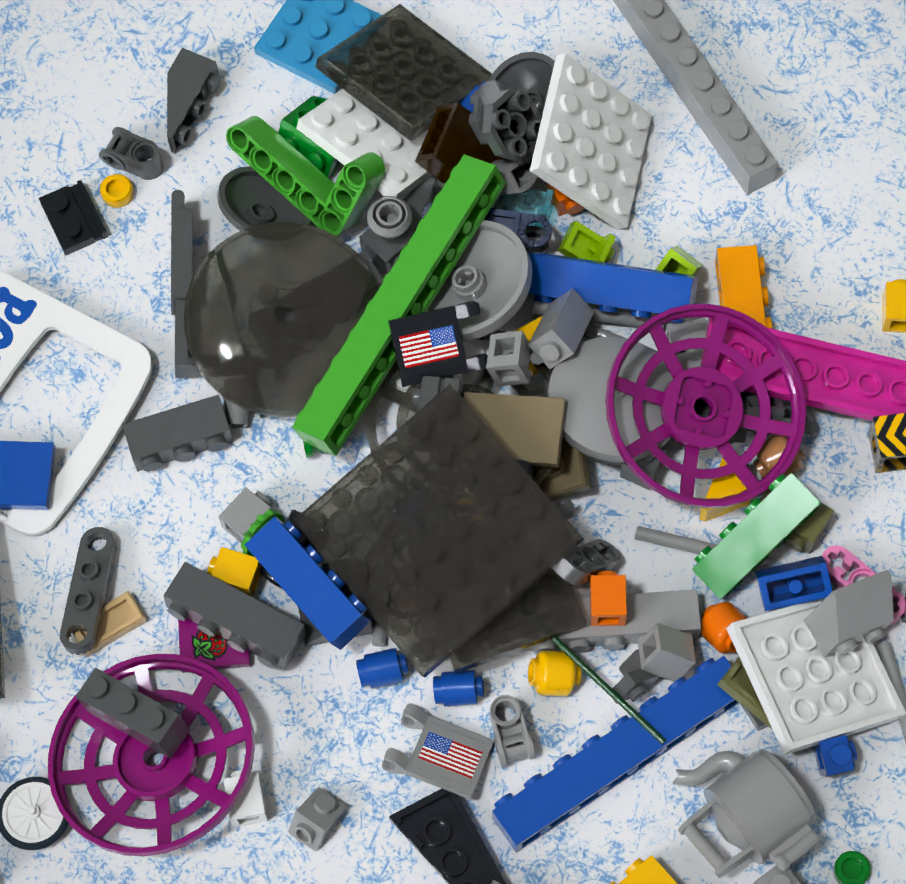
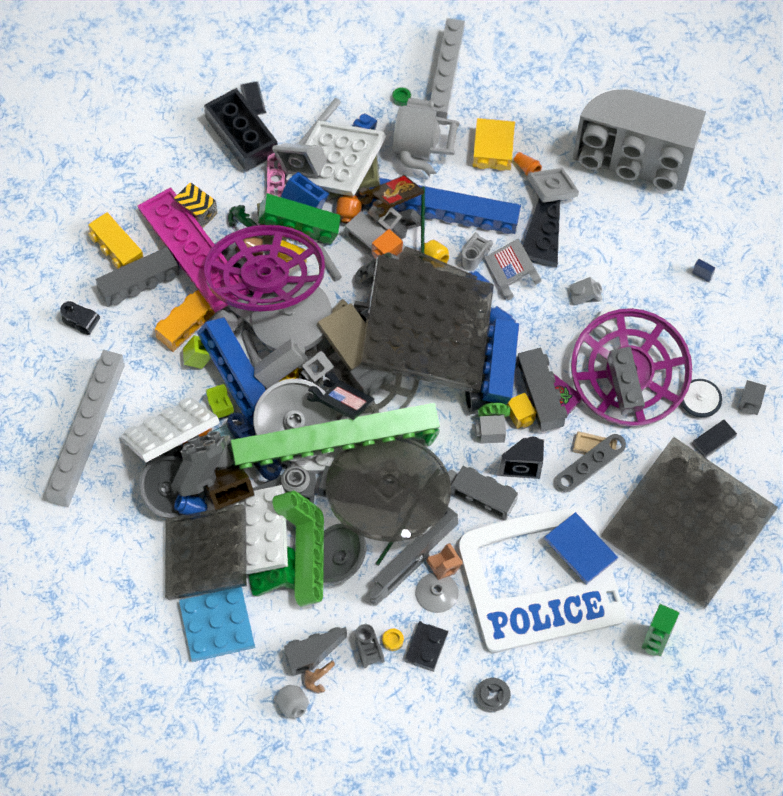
camera: 140 degrees left, 5 degrees down
(125, 297) = (437, 601): none -> light grey dish
(141, 311) = (445, 563): none -> nougat panel
(152, 30) = (292, 700): none -> light grey head
(158, 74) = (310, 677): none -> medium nougat piece
(164, 505) = (523, 459): none -> black slope
(682, 679) = (391, 194): none -> dark brown flag
(846, 485) = (239, 213): none -> dark green piece
(858, 186) = (79, 317): none -> black piece
(858, 289) = (137, 277): none -> dark grey brick

